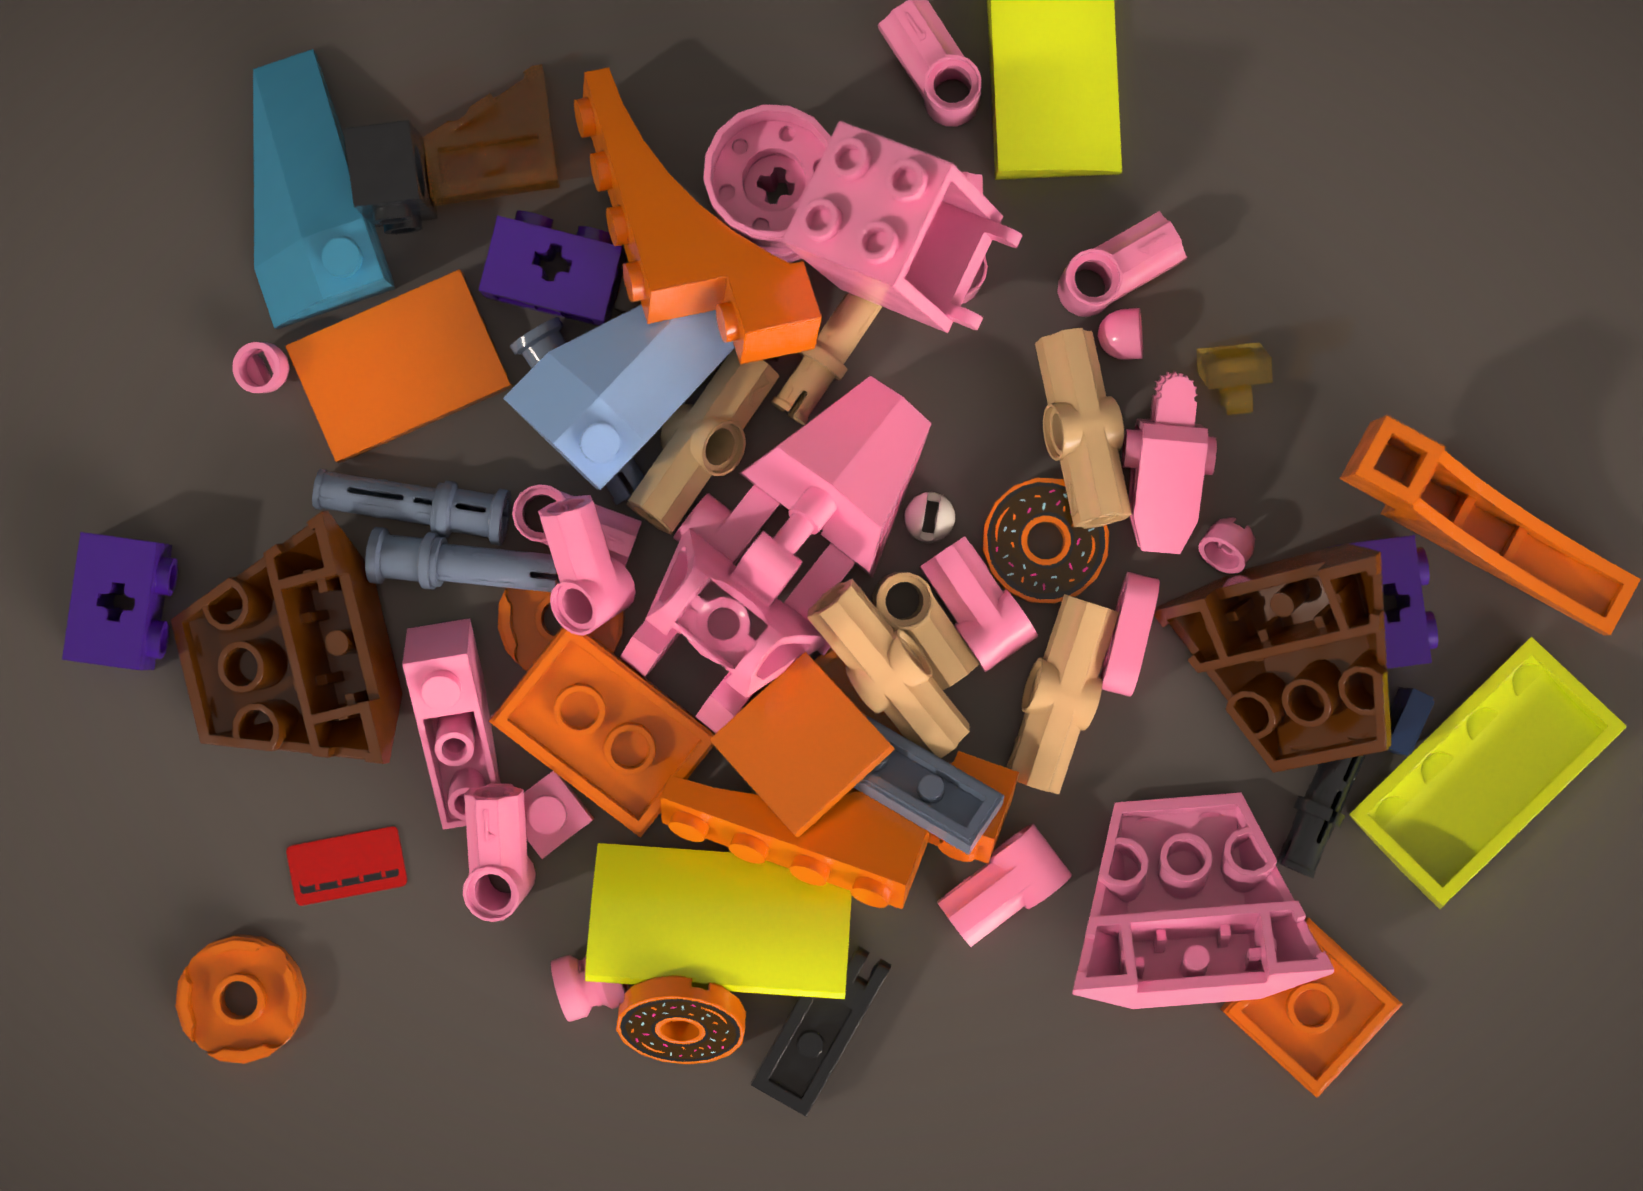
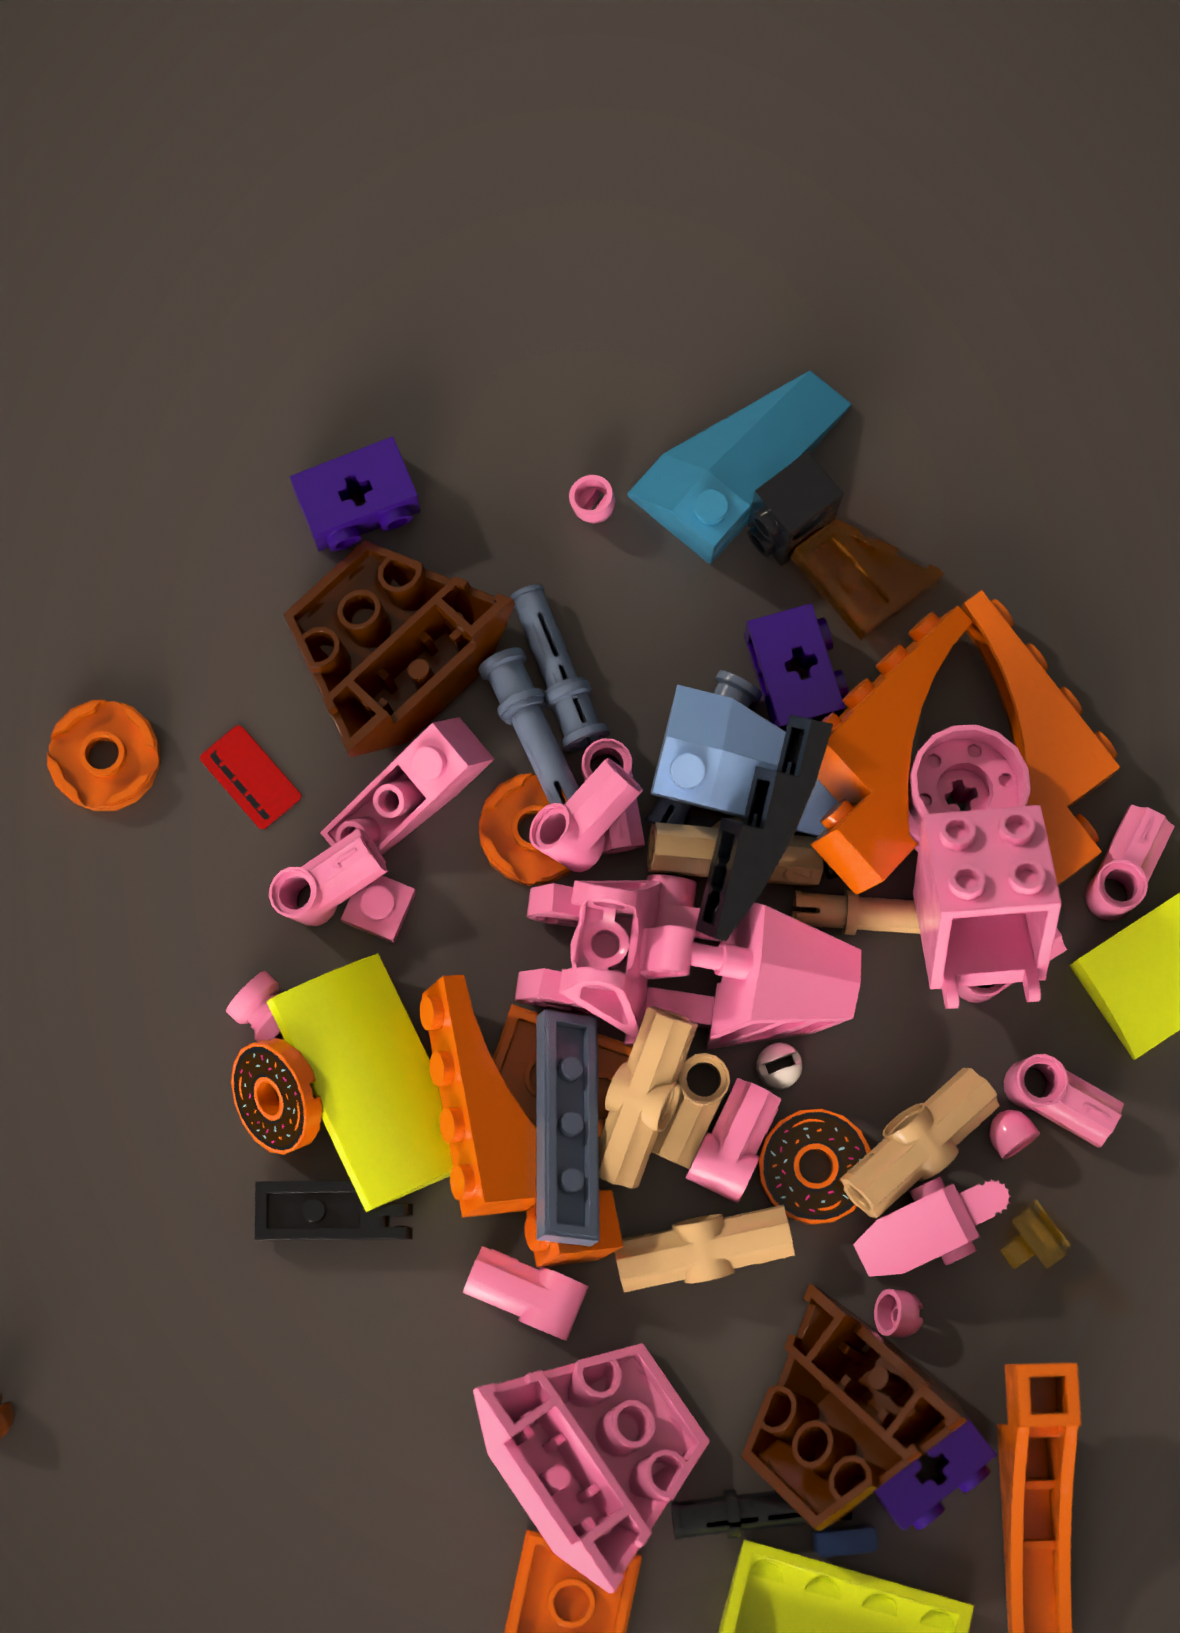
camera: 60 degrees right, 10 degrees down
(399, 366) = (653, 599): orange tile -> none
(603, 728) = (469, 907): orange tile -> none
(712, 422) = (752, 848): none -> black slope
(766, 62) = (1047, 728): none -> orange arch
(801, 744) = (546, 1060): orange tile -> none
(1131, 633) = (782, 1274): bright pink beam -> none

